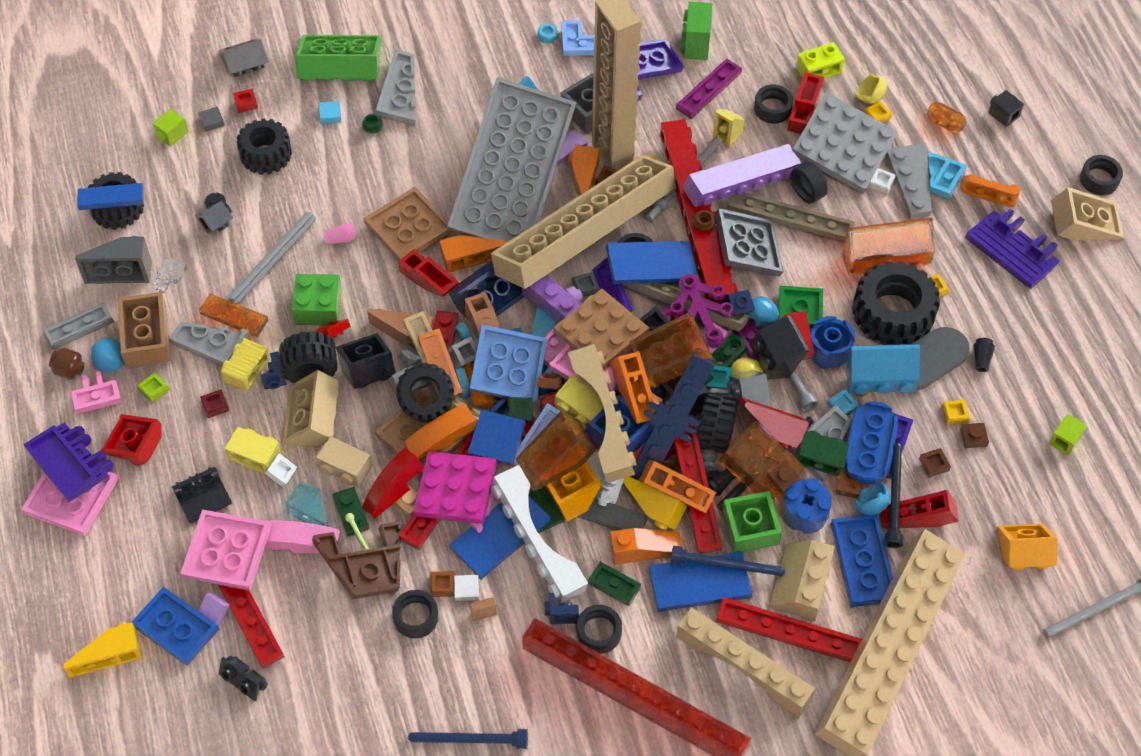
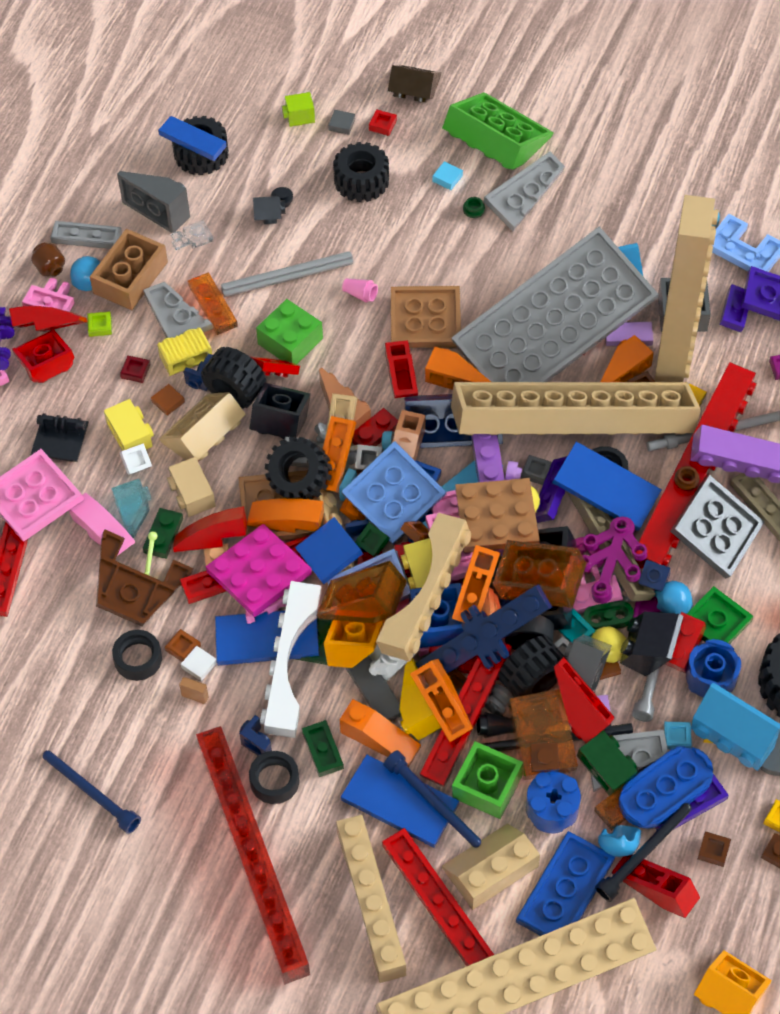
camera: 40 degrees right, 0 degrees up
(108, 408) = (44, 318): none -> red slope
(263, 410) = (168, 399): none -> dark orange tile

